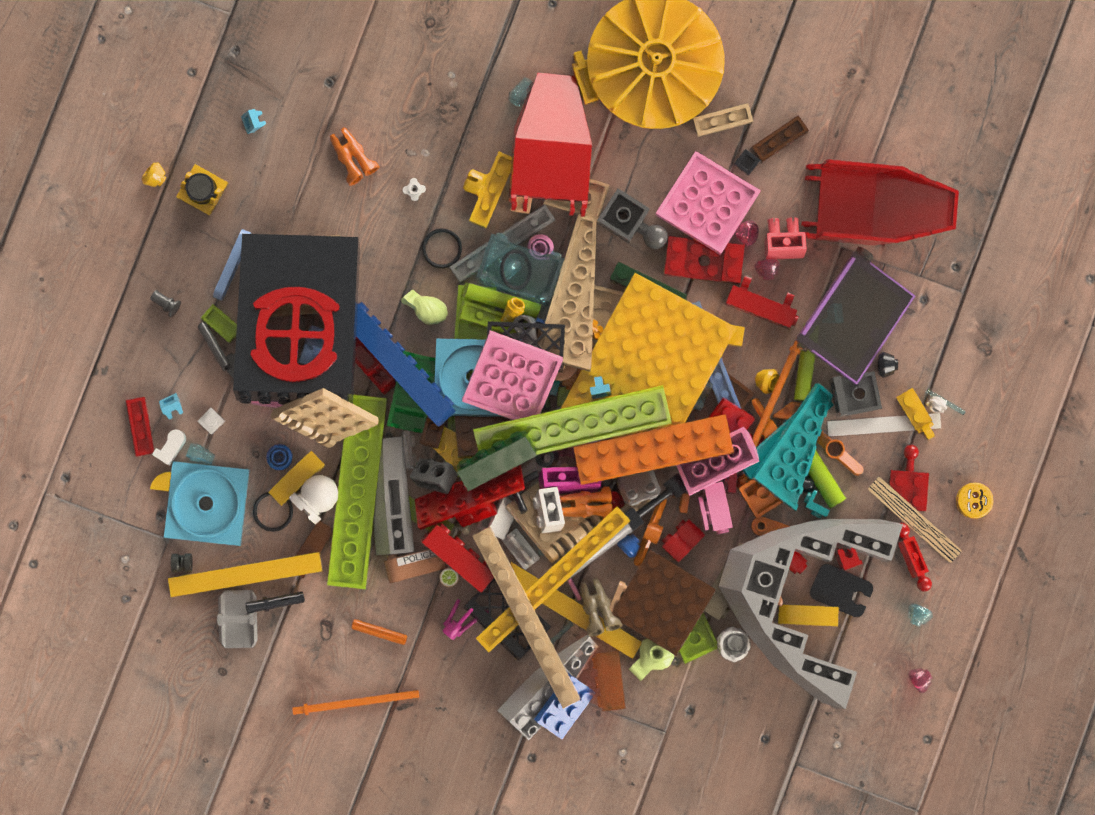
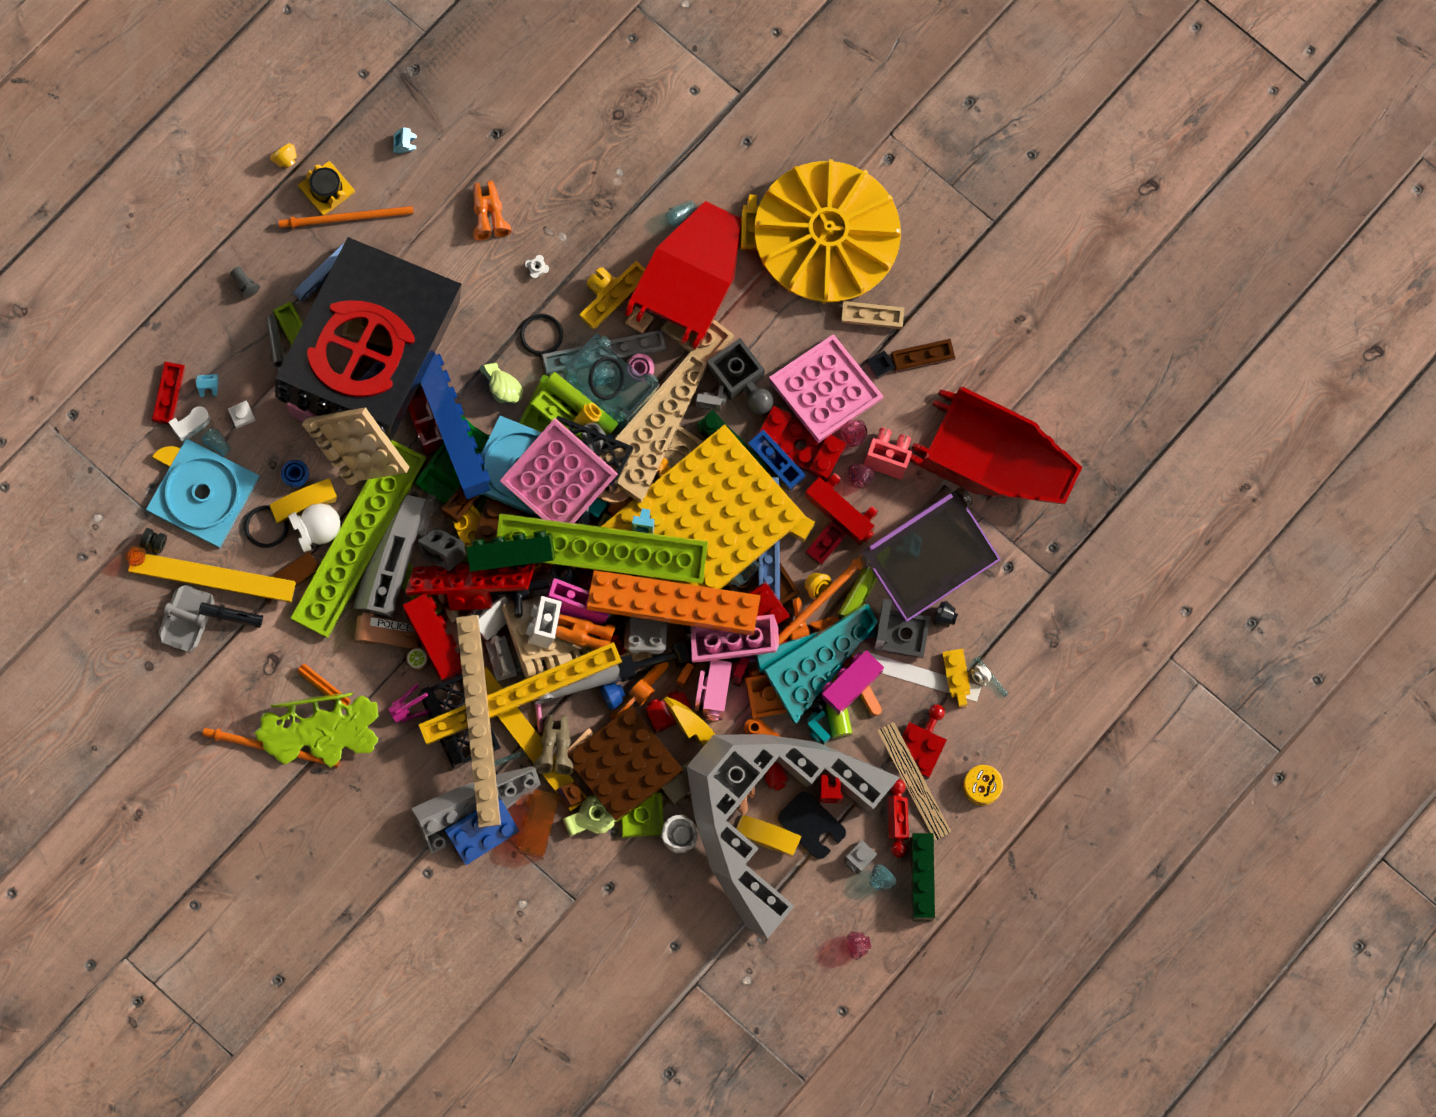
camera: 10 degrees right, 10 degrees down
(177, 582) = (139, 559): none -> clear orange plate
(185, 232) = (293, 222): none -> orange bar
(396, 673) = (323, 731): none -> lime plant
(610, 252) = (709, 401): none -> light grey bracket
(628, 646) = (570, 795): none -> reddish brown plate
(691, 285) = (777, 460): none -> blue slope
(706, 544) = (689, 721): none -> yellow slope
(760, 340) = (826, 543): none -> dark red plate
(830, 456) = (851, 681): none -> dark pink brick
(893, 603) = (859, 857): none -> light grey bracket
(953, 600) = (922, 877): none -> dark green brick

